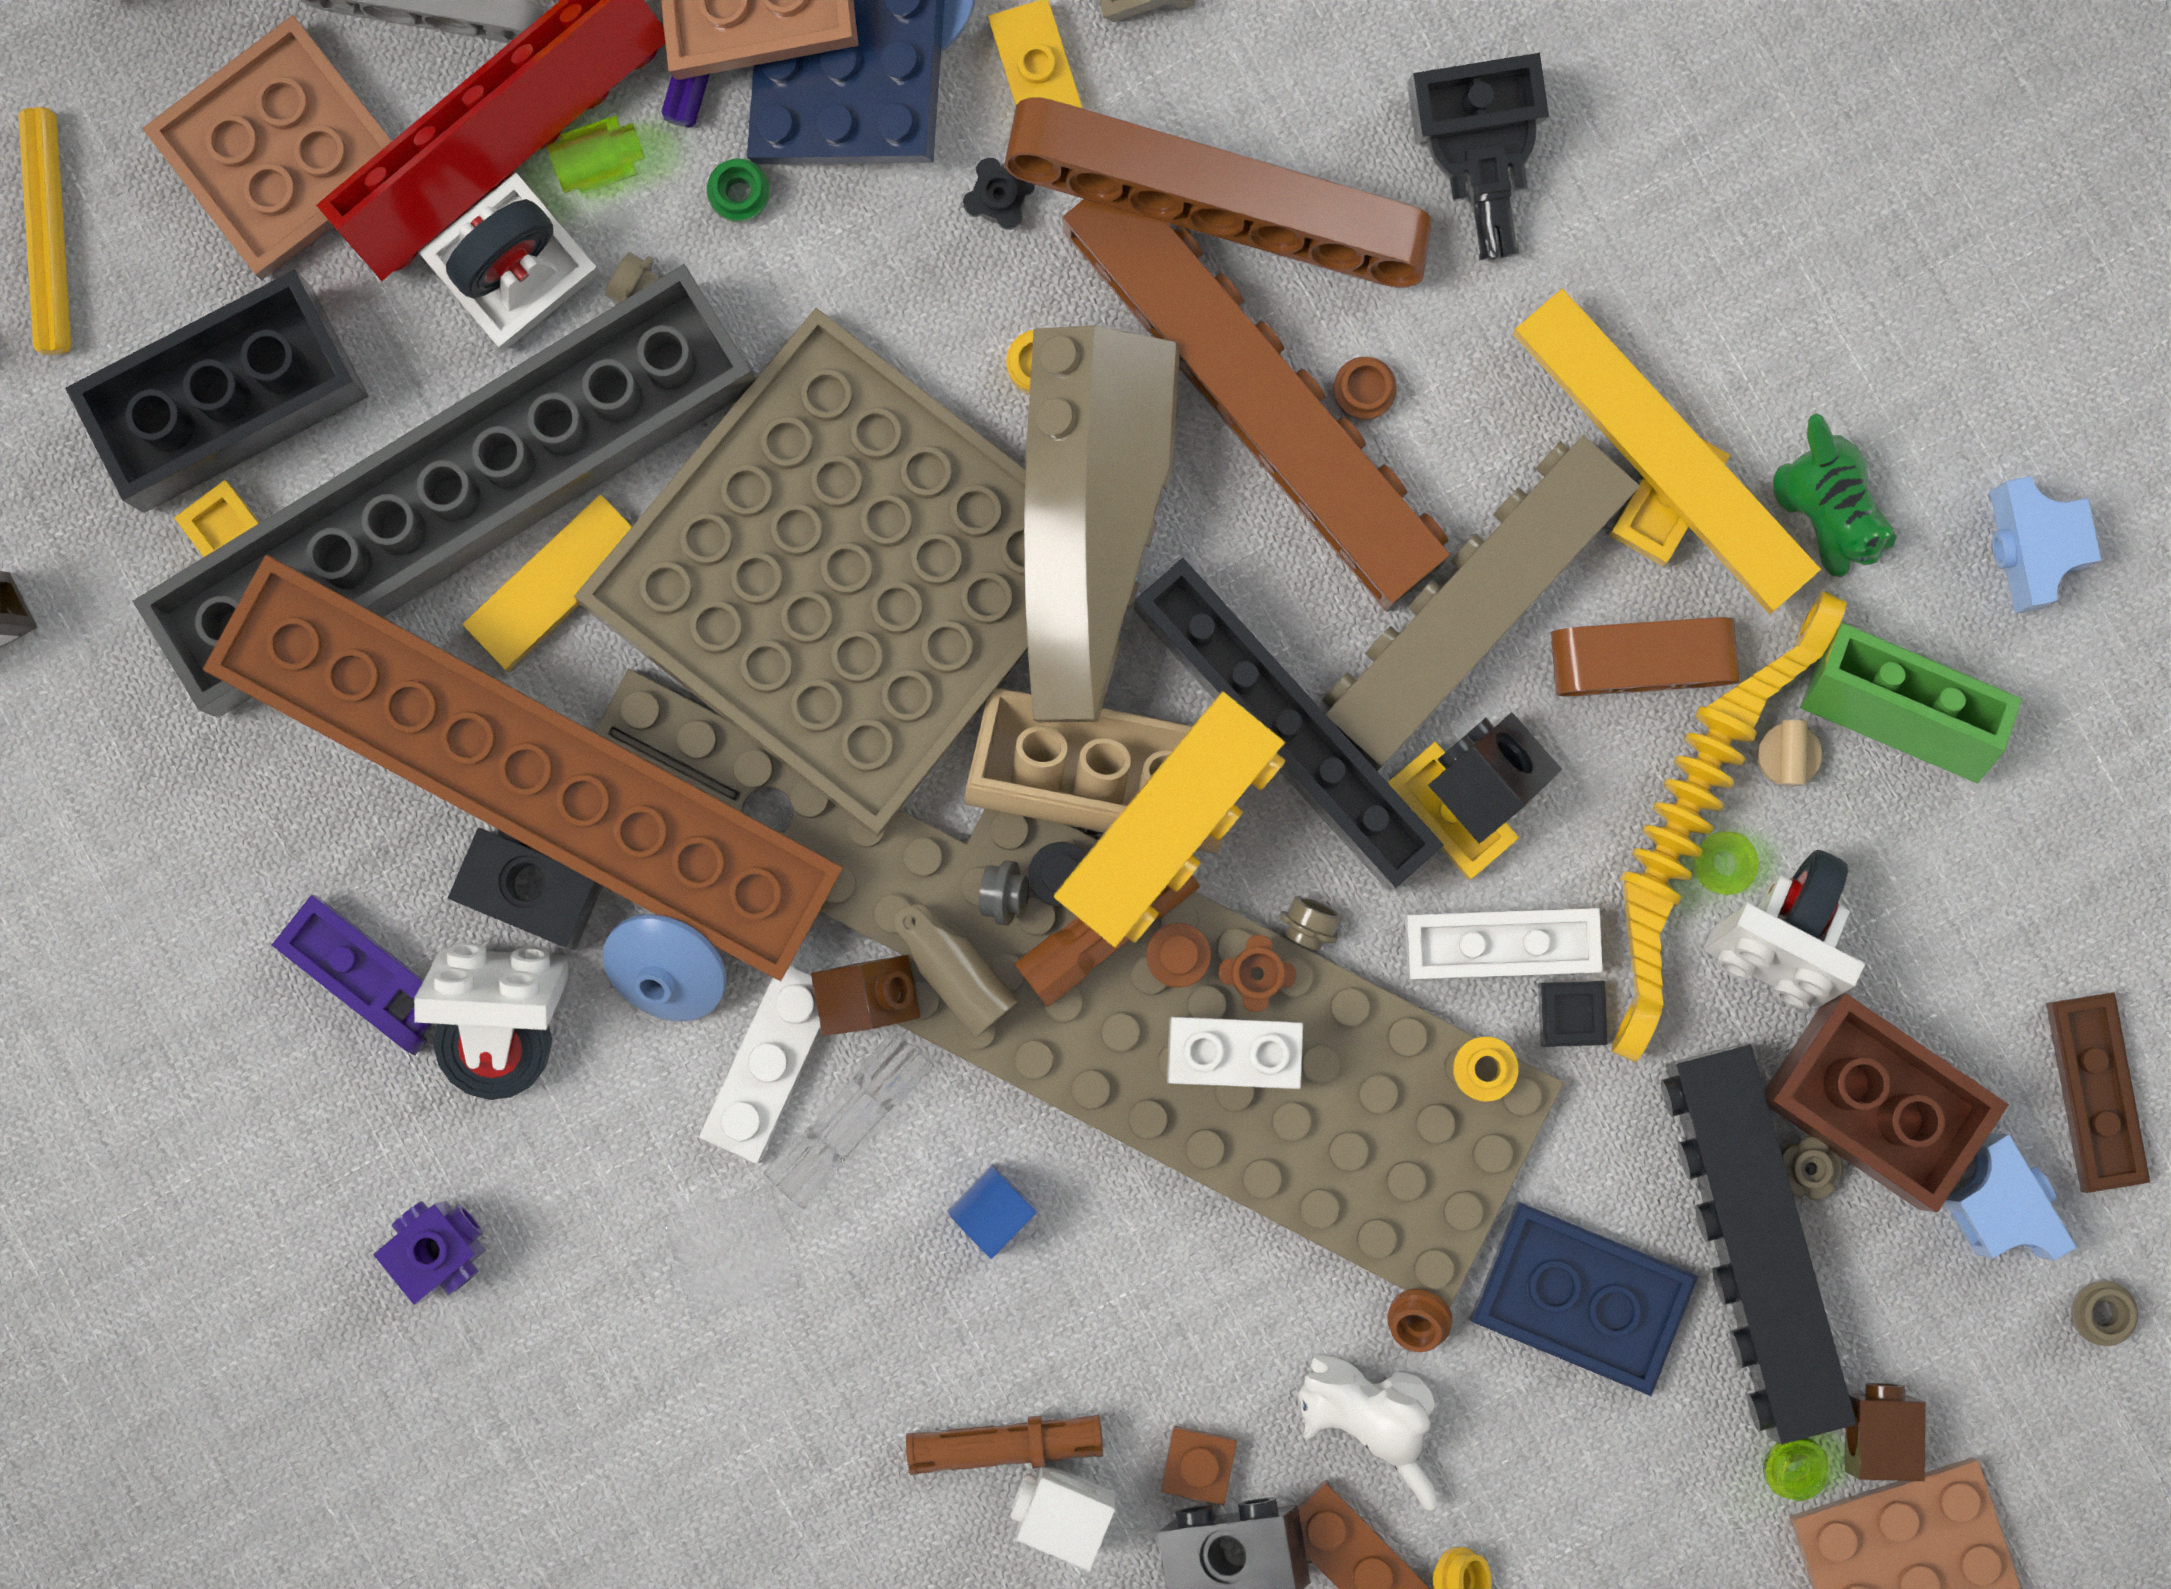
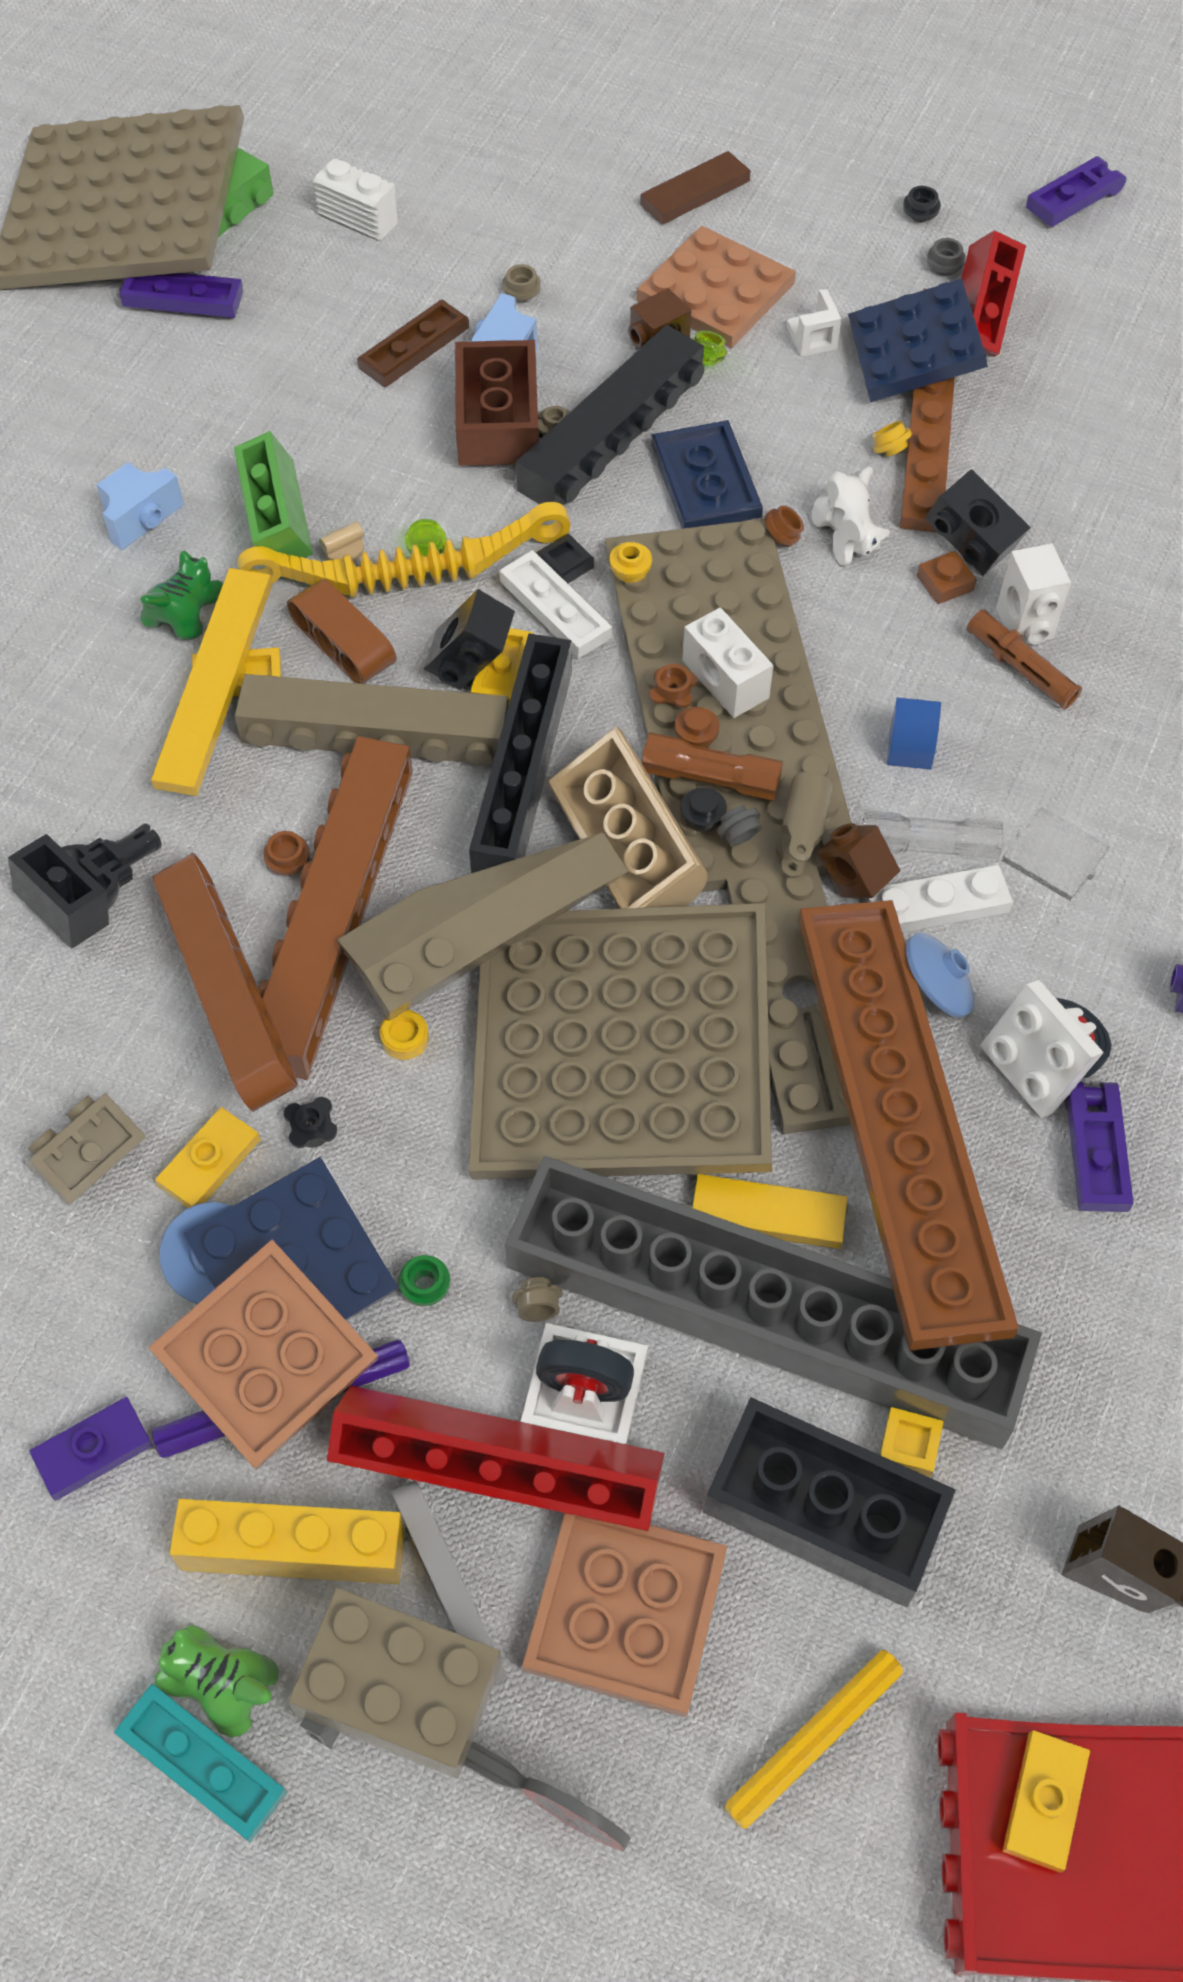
camera: 125 degrees left, 25 degrees down
(488, 887) = (968, 1061): black brick -> none
(596, 155) = (468, 1380): clear neon green brick -> none
(1169, 820) = (630, 741): yellow brick -> none
(1311, 923) = (621, 692): dark tan plate -> none
(1792, 936) = (438, 478): white plate -> none

